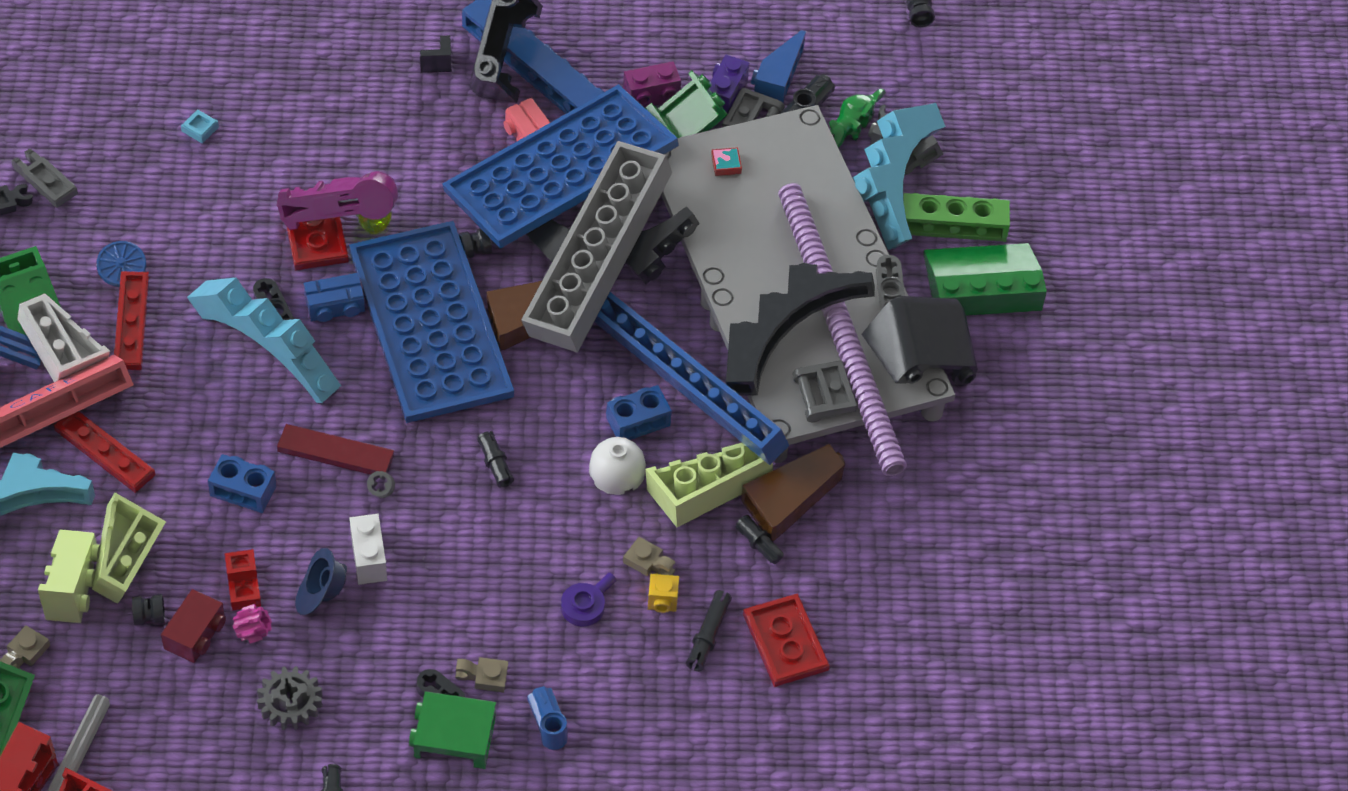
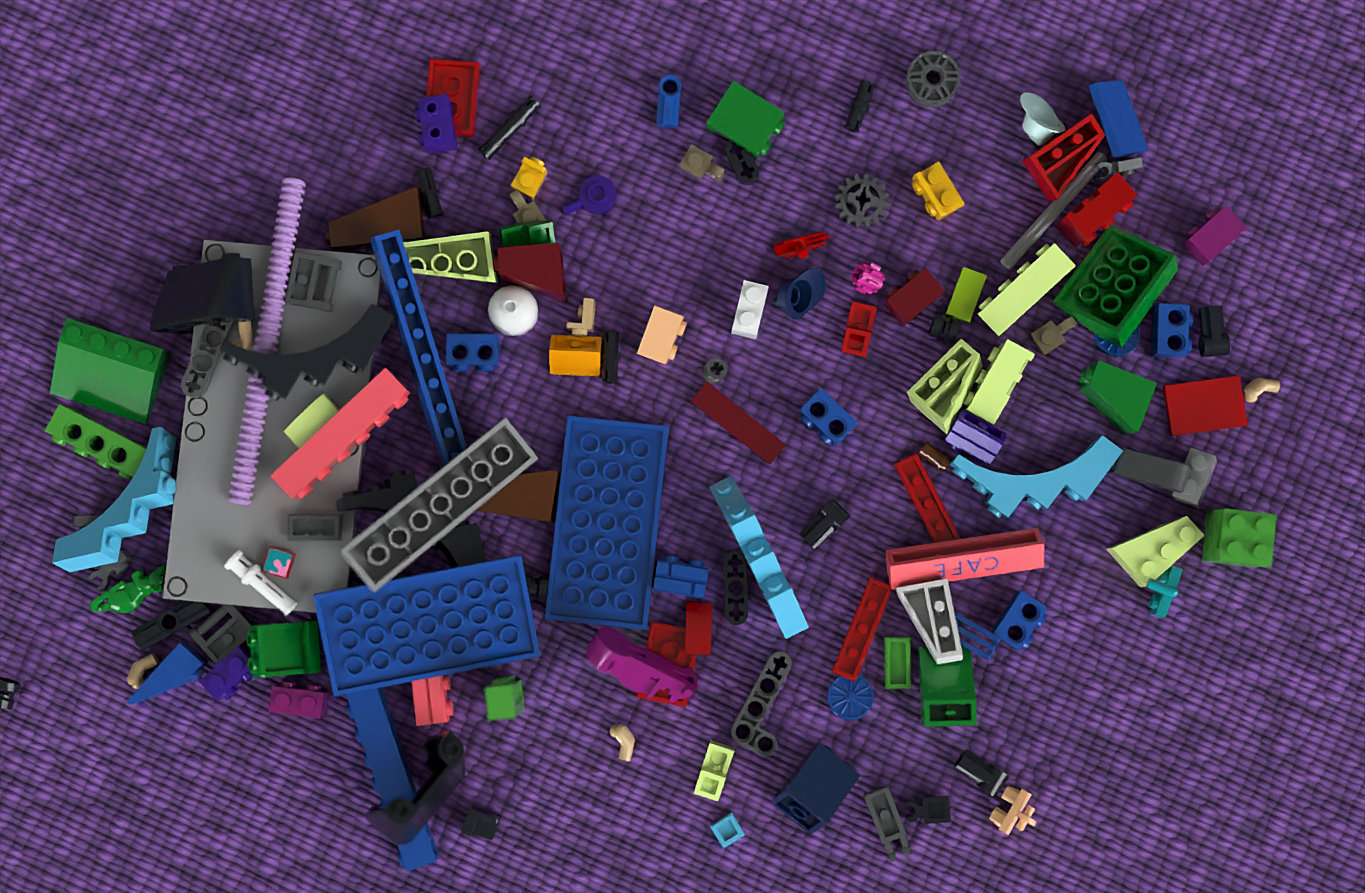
camera: 150 degrees left, 30 degrees up
(67, 676) = (1026, 289): none -> yellowish green wedge
(74, 515) = (975, 437): none -> brick
(84, 306) = (897, 663): none -> bright green tile
(107, 488) = (935, 456): none -> reddish brown pin
(125, 175) = (816, 788): none -> dark blue slope
(136, 654) = (966, 294): none -> lime tile
(204, 397) = (829, 519): none -> black piece
(208, 742) = (937, 191): none -> yellow bracket
(213, 206) = (766, 699): none -> dark grey beam
(232, 164) = (714, 770): none -> yellowish green slope
(297, 263) = (698, 628): none -> red slope
(331, 160) = (625, 739): none -> tan arm
(341, 633) = (798, 245): none -> red piece
(452, 492) = (661, 334): none -> light nougat brick
(456, 126) = (504, 698): none -> bright green brick
(534, 451) = (575, 355): none -> light orange panel
(537, 481) = (587, 314): none -> tan bracket
(611, 496) = (534, 268): none -> dark red slope
(628, 536) = (527, 234): none -> green slope
(708, 195) = (314, 527): none -> dark grey plate
(723, 275) = (340, 435): none -> coral brick
(745, 145) = (251, 575): none -> white pin
(757, 276) = (311, 420): none -> yellowish green slope
(784, 595) = (437, 124): none -> dark purple brick
(812, 66) = (138, 668): none -> tan arm
(864, 315) = (245, 337): none -> tan arm

